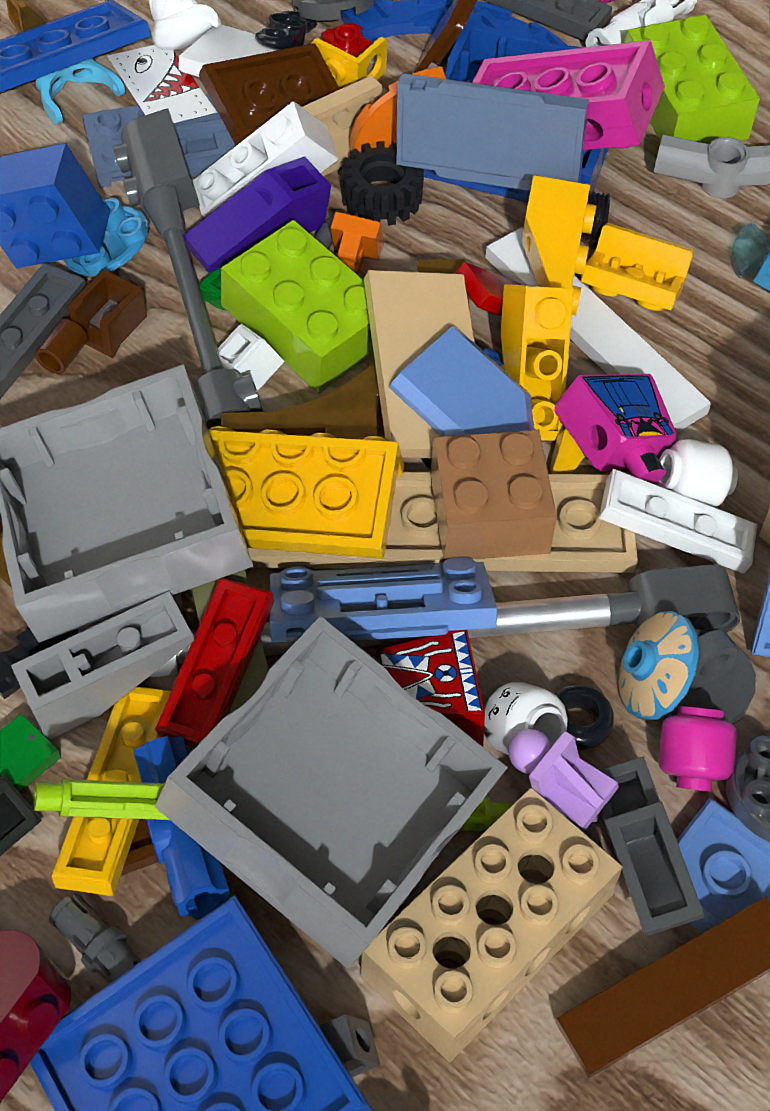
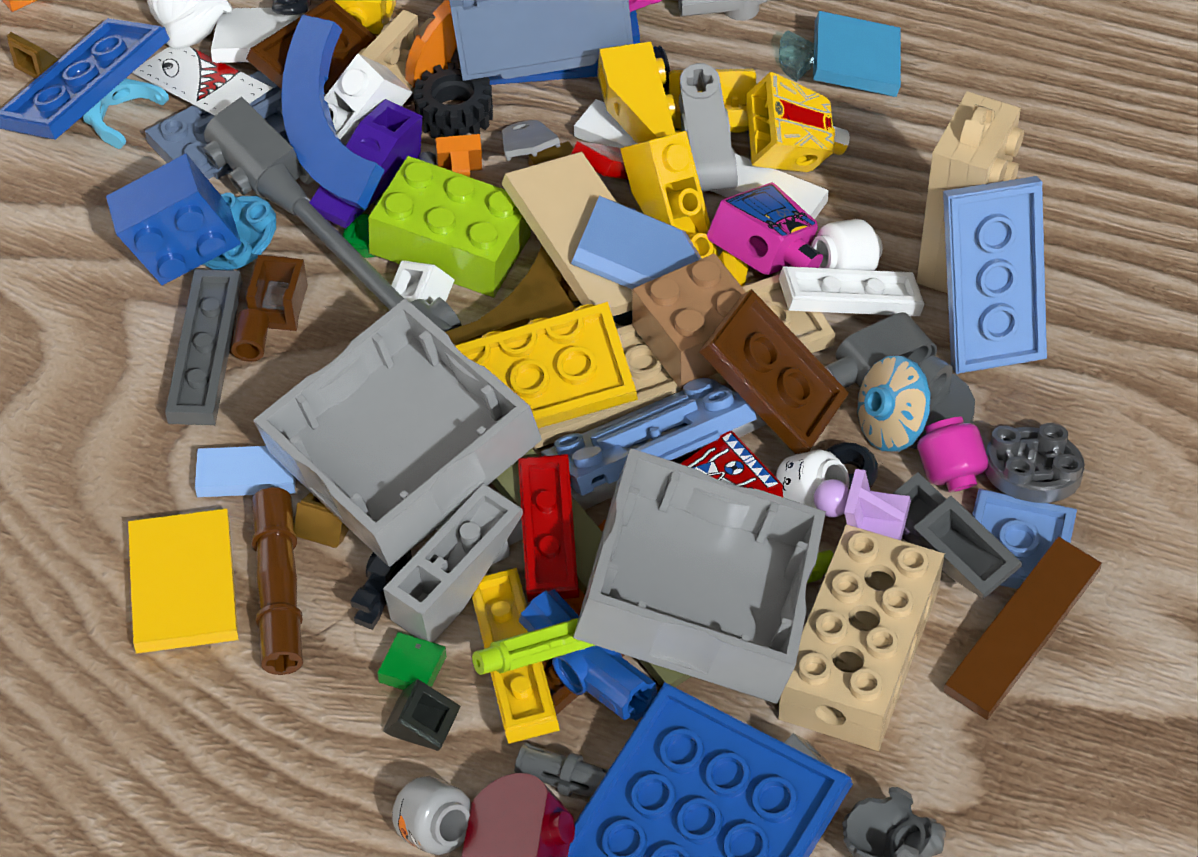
camera: 20 degrees left, 5 degrees down
(219, 156) = (309, 117): none -> blue tile
(426, 243) = (527, 138): none -> light grey piece
(537, 584) = (774, 372): none -> reddish brown tile
(607, 295) = (707, 127): none -> light grey piece
(701, 322) = (791, 126): none -> yellow torso

